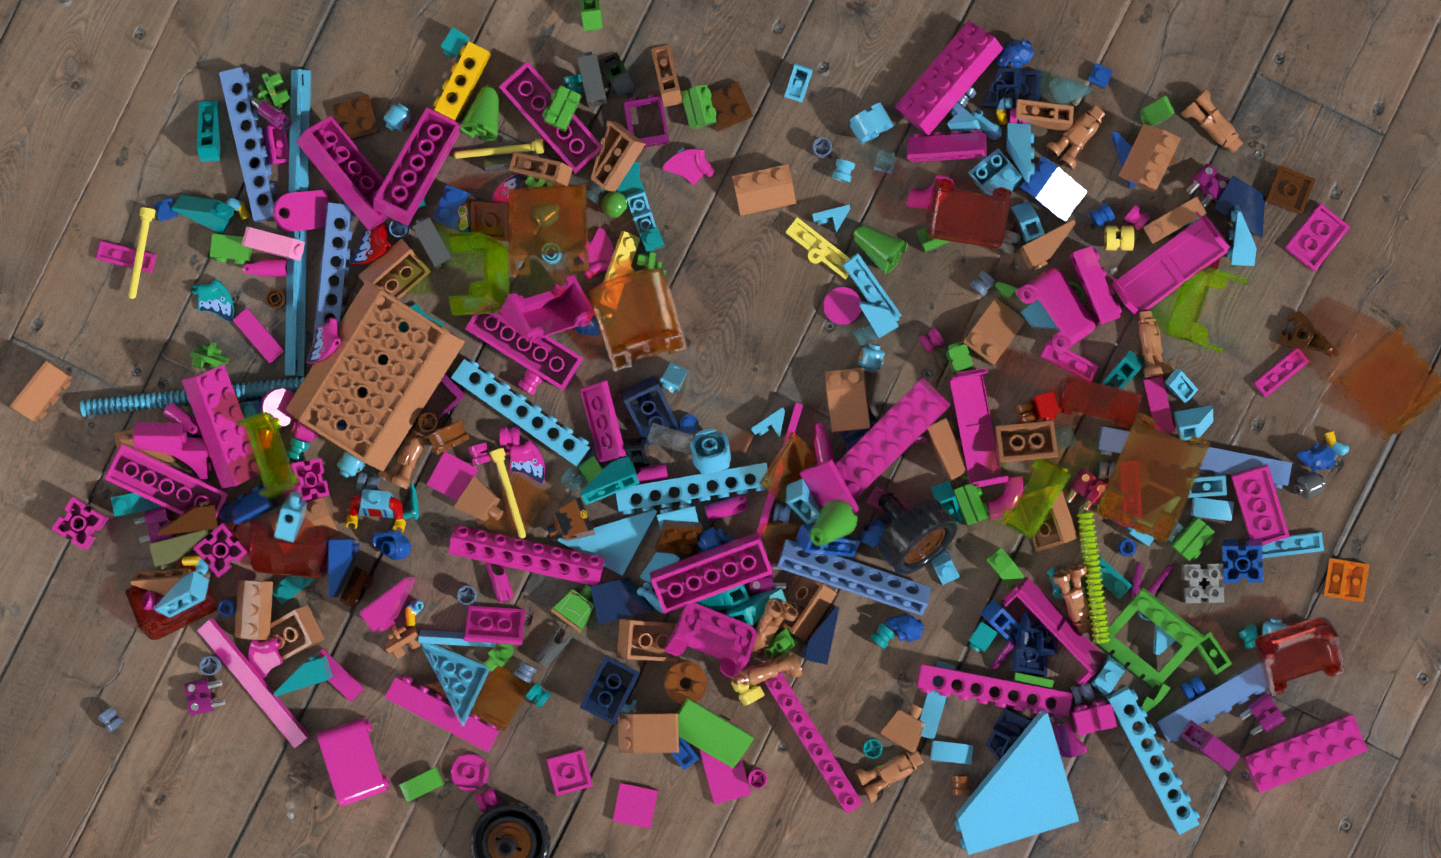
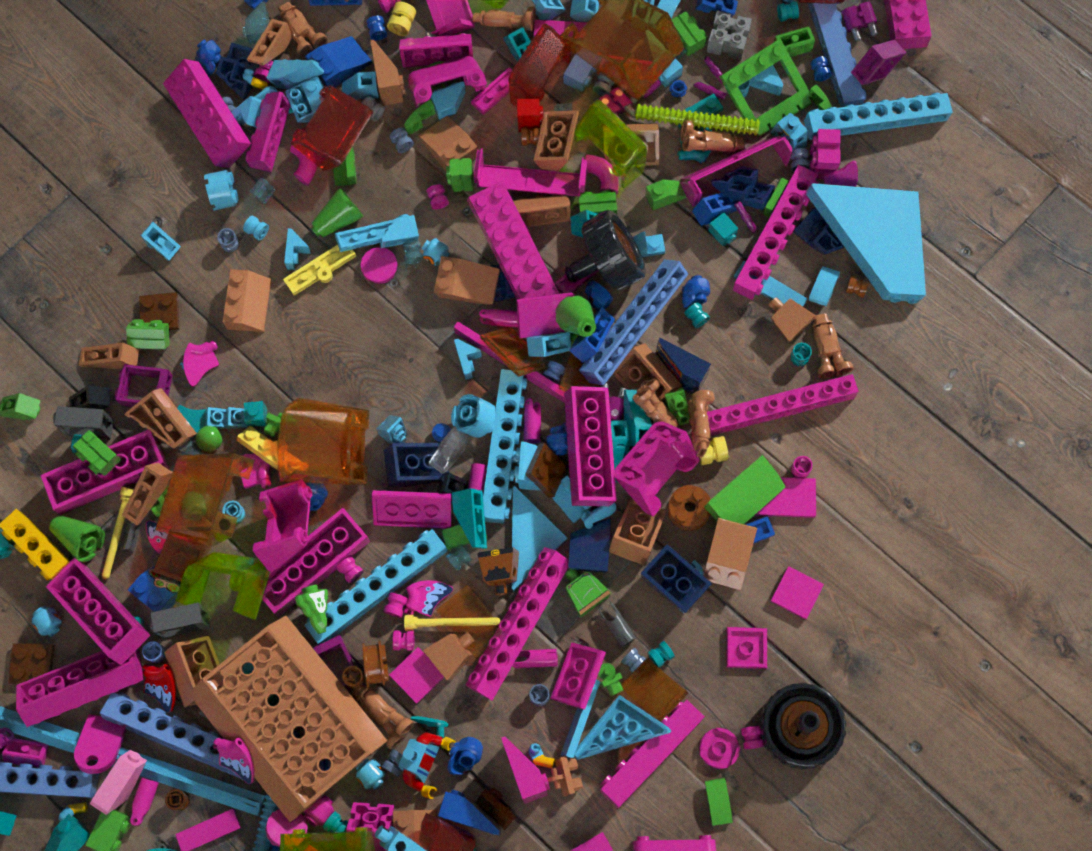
camera: 75 degrees left, 15 degrees down
(482, 363) = (314, 605): none -> bright green rock

